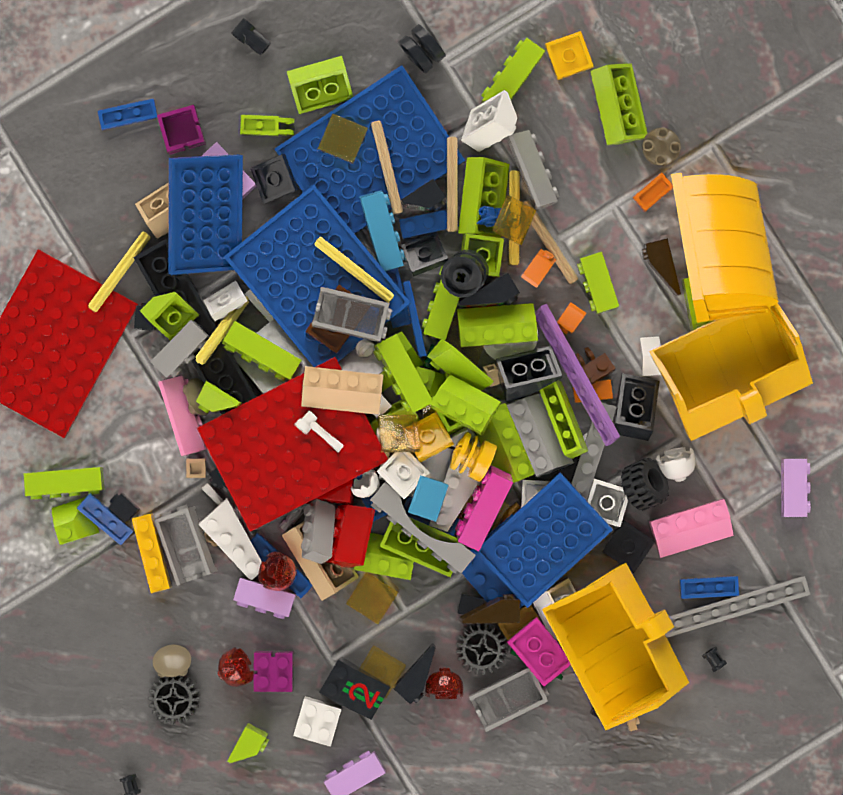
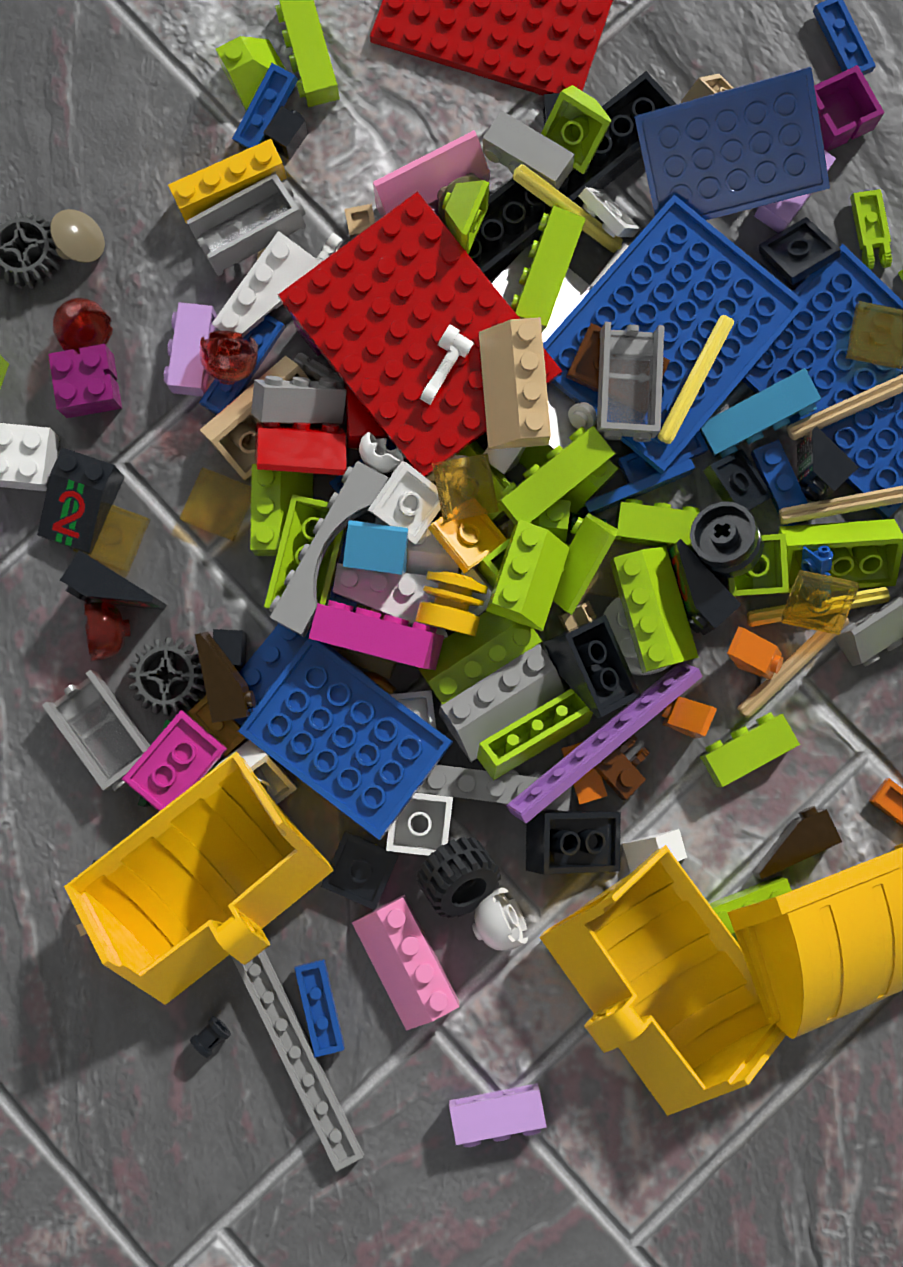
camera: 75 degrees right, 5 degrees down
(119, 272) = (614, 60): light yellow axle -> none

